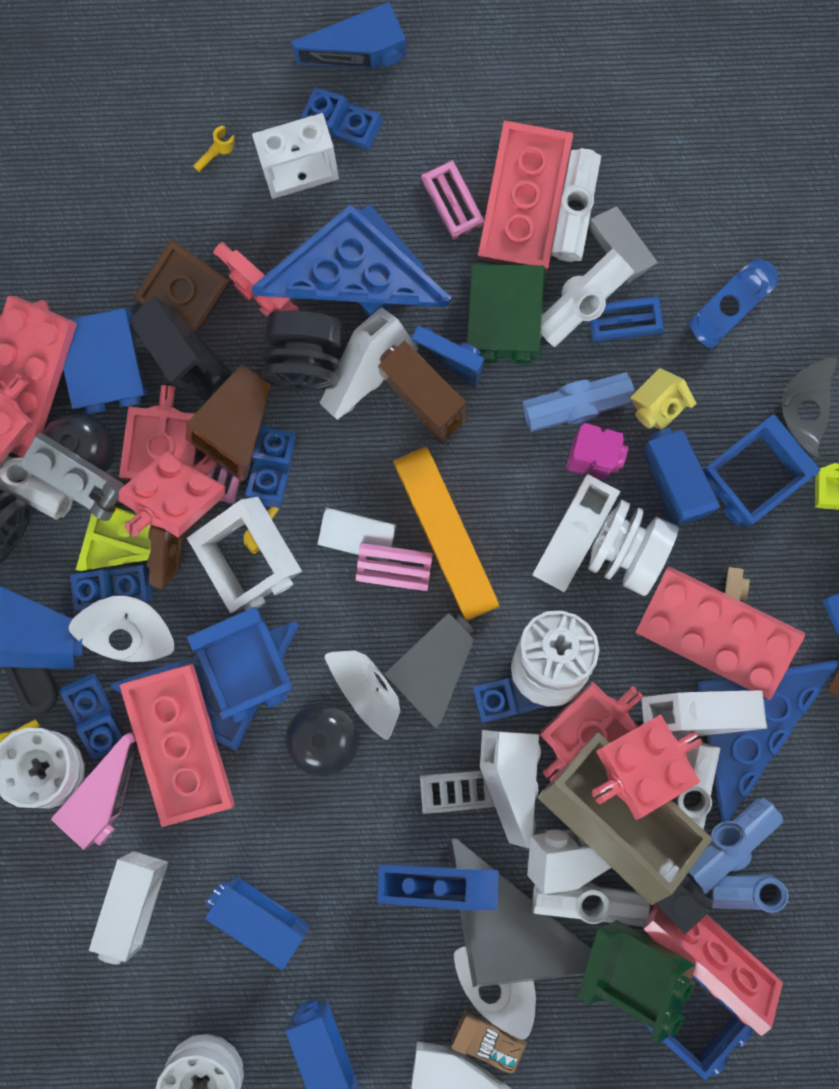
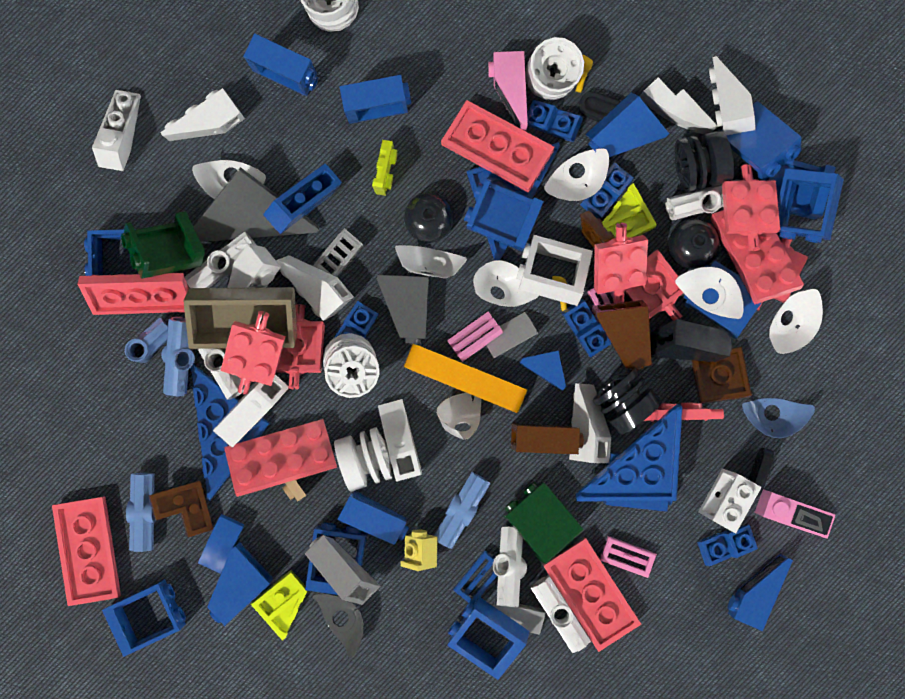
camera: 135 degrees right, 5 degrees up
(34, 269) = (806, 312): none -> white piece
(72, 475) = (679, 226): plate -> none
(94, 353) = (698, 280): none -> white piece
(128, 907) = (444, 46): white window -> none
(160, 179) = (791, 419): none -> medium blue piece
(216, 148) = (777, 466): yellow hand -> none
(232, 160) = (761, 468): none -> black tile
(244, 86) = (794, 514): none -> bright pink slope
(304, 846) = (386, 157): none -> neon yellow wing
(305, 594) = (507, 273): none -> white piece
(349, 466) = (547, 367): none -> blue slope
(460, 360) = (540, 474): blue plate -> none
(484, 507) = (460, 410): none -> white piece
(487, 1042) = (210, 149): medium nougat leg -> none
(596, 452) = (426, 491): dark pink brick -> none
(647, 254) = (500, 622): none -> blue window
(686, 905) = (171, 303): black brick -> none
(747, 287) = (431, 654): blue piece -> none
(764, 452) = (341, 570): none -> light grey slope

